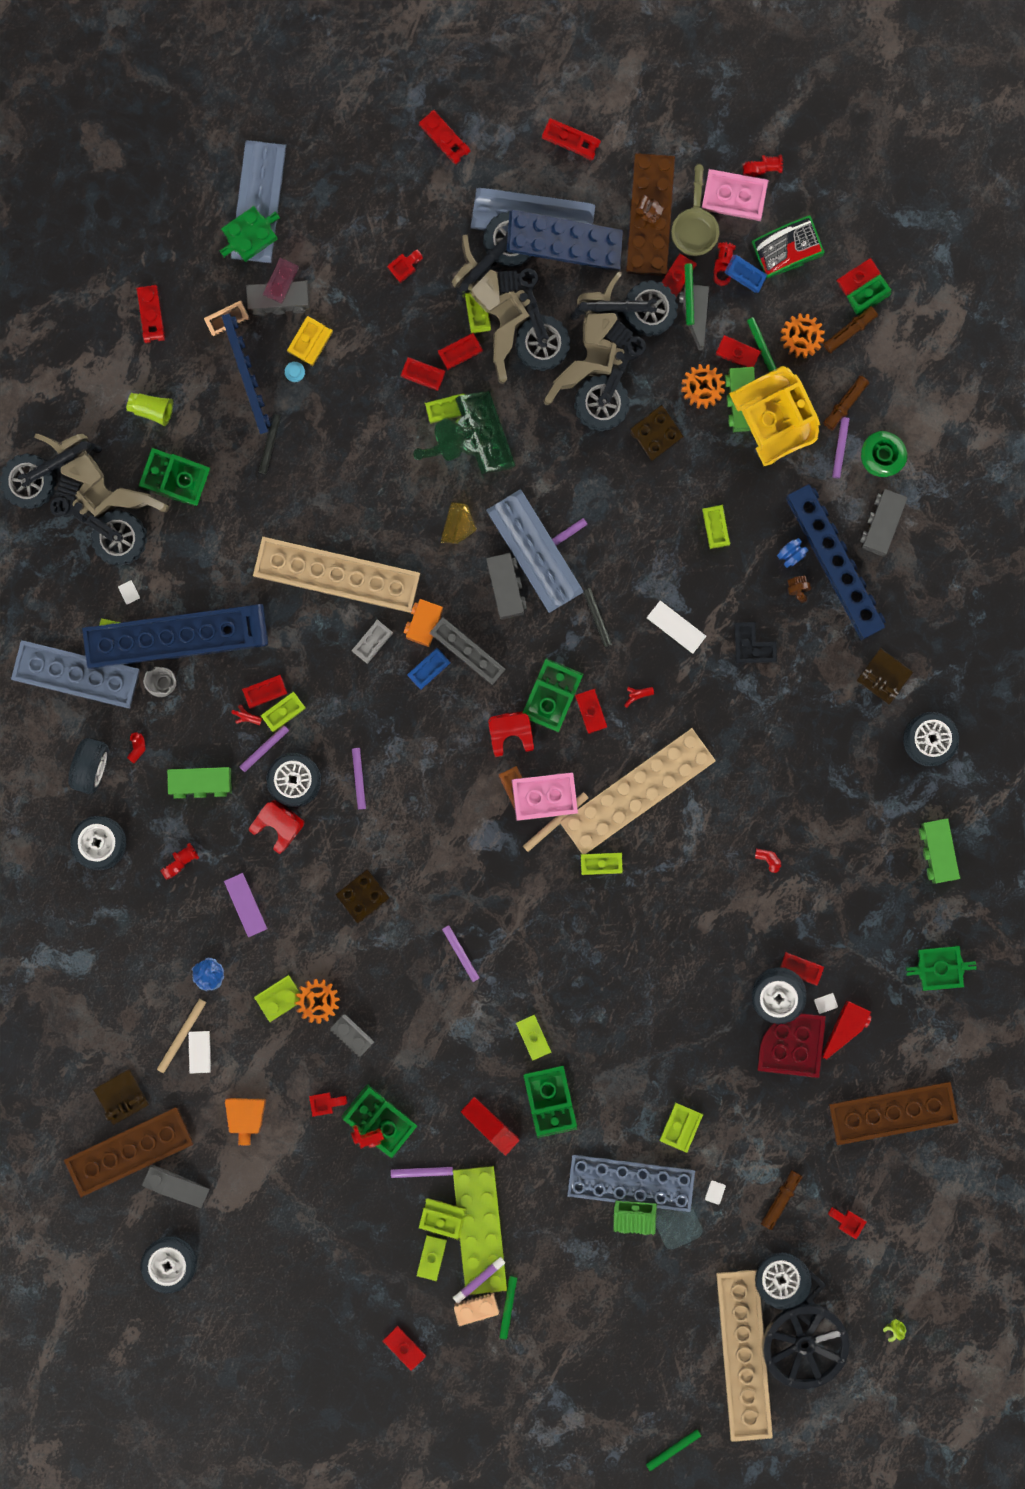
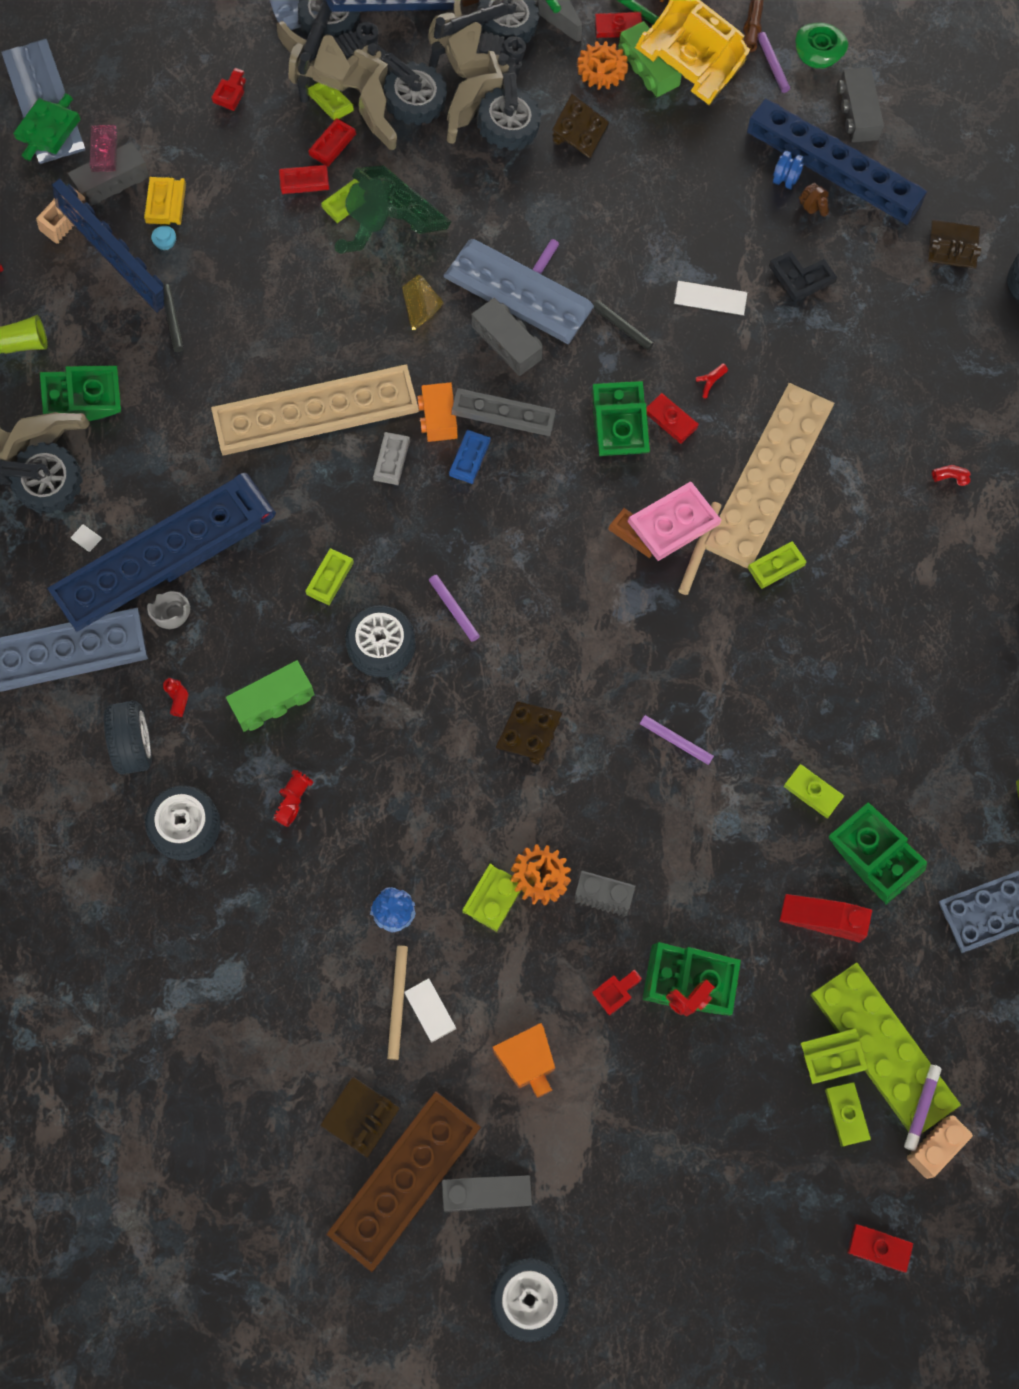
camera: 30 degrees left, 15 degrees down
(245, 716) = (290, 602): red bar -> none
(245, 905) = (396, 810): medium lavender tile -> none
(264, 748) = (327, 628): medium lavender bar -> none
(265, 691) = (297, 565): red plate -> none
(282, 820) = (387, 689): red piece -> none
(421, 1172) = (776, 1015): medium lavender bar -> none
(508, 1307) = (974, 1127): green bar -> none
(510, 725) = (593, 467): red piece -> none
(716, 526) = (694, 184): lime plate -> none

